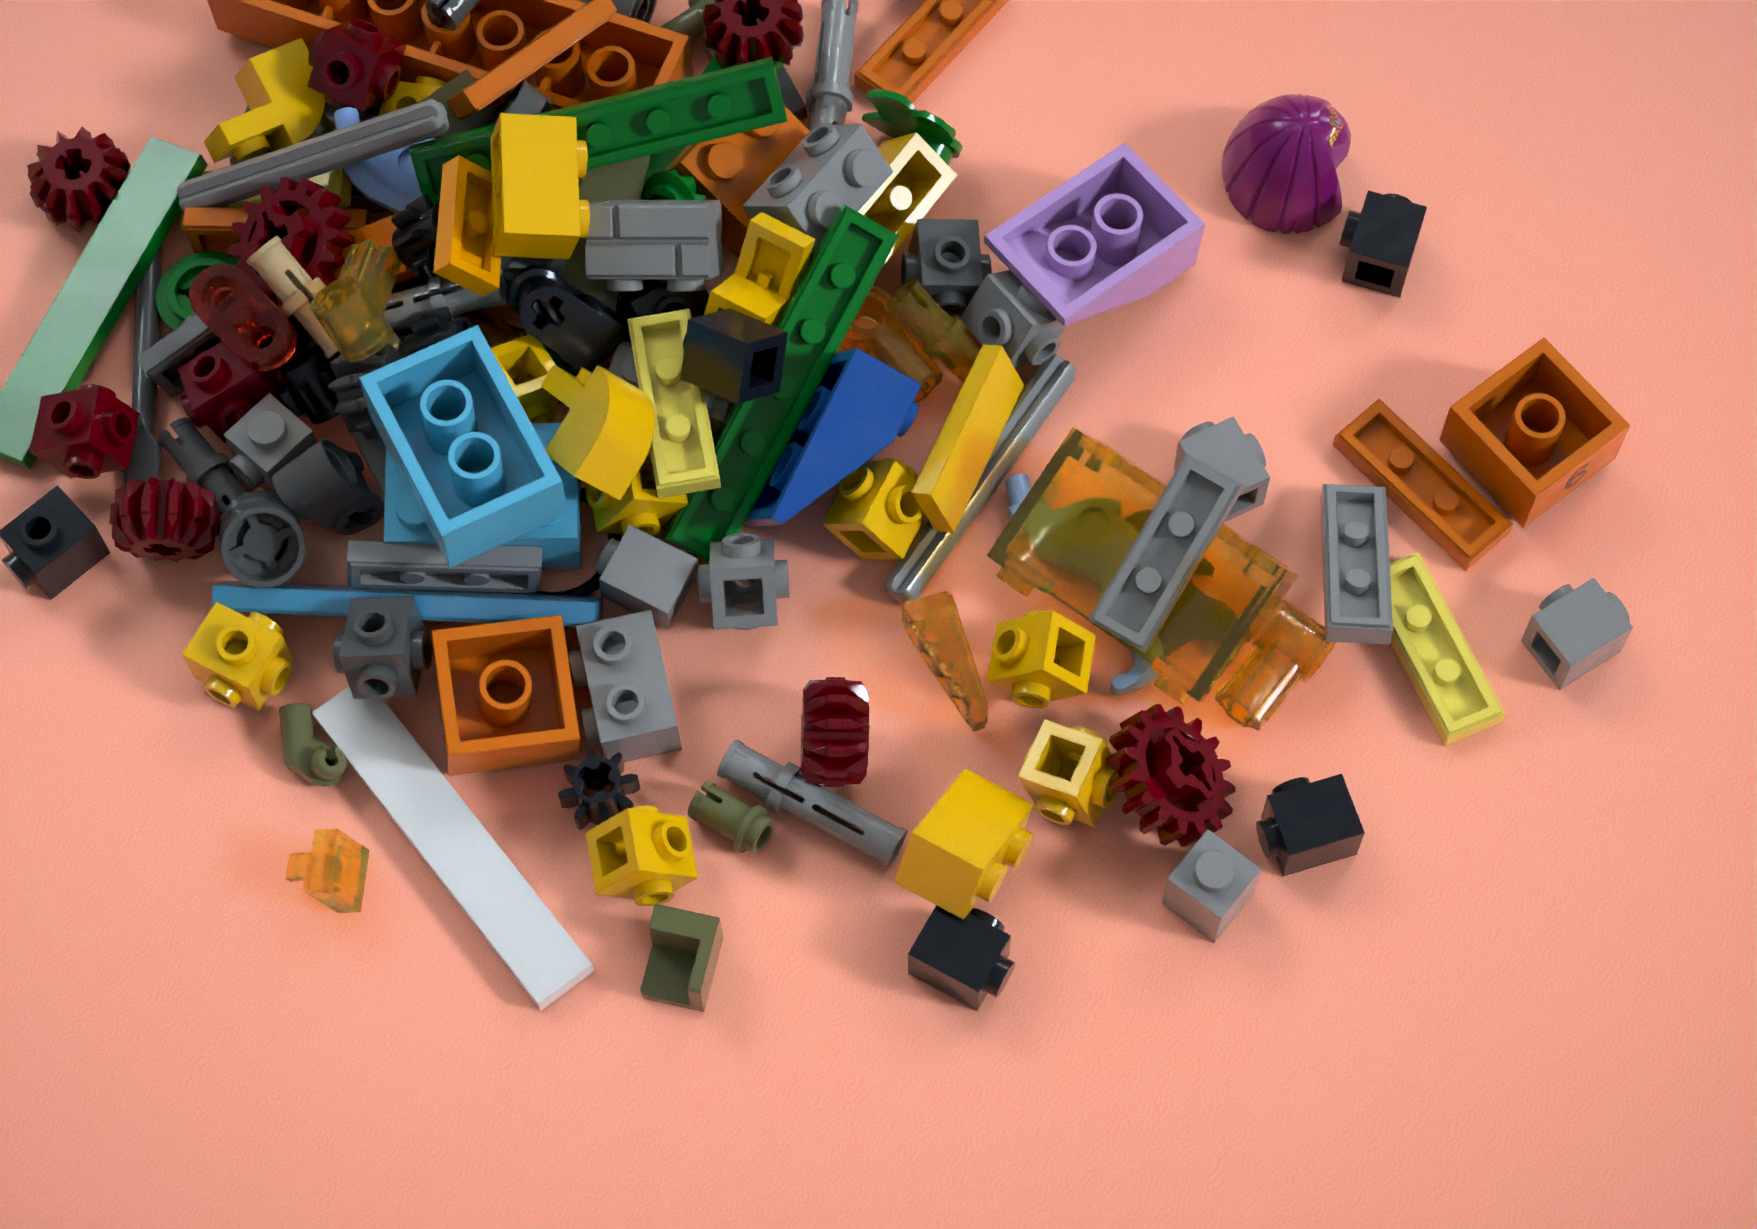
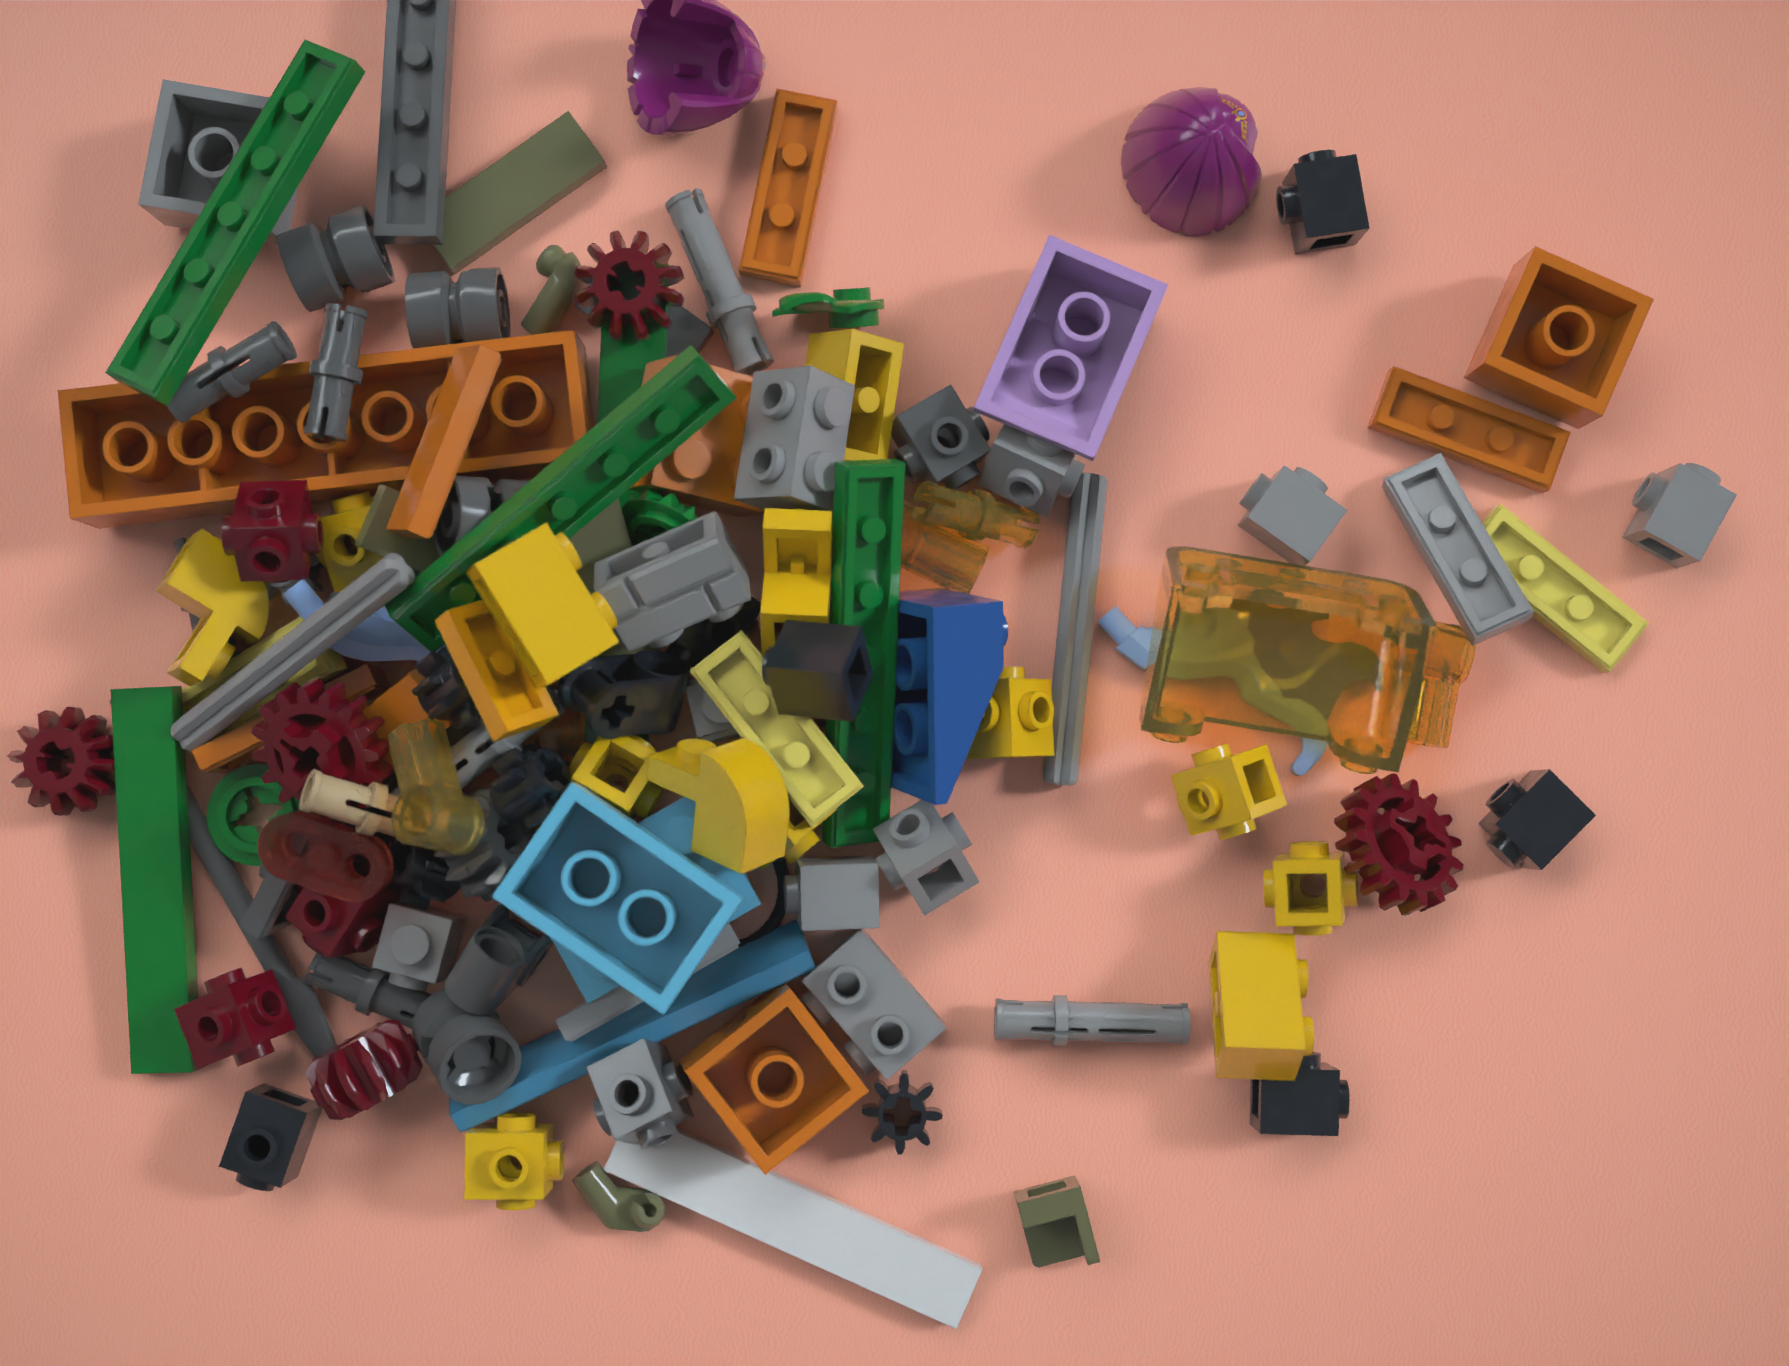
camera: 30 degrees left, 20 degrees up
(332, 871) = (710, 1308): clear yellow tile -> none
(641, 855) = (988, 1151): yellow brick -> none
(732, 818) = (1034, 1072): olive pin -> none
(834, 732) = (1084, 956): dark red gear -> none
(941, 641) = (1129, 813): clear yellow slope -> none
(968, 438) = (1054, 610): yellow tile -> none
(1166, 553) = (1299, 641): light grey tile -> none
(1211, 885) = (1481, 925): light grey brick -> none

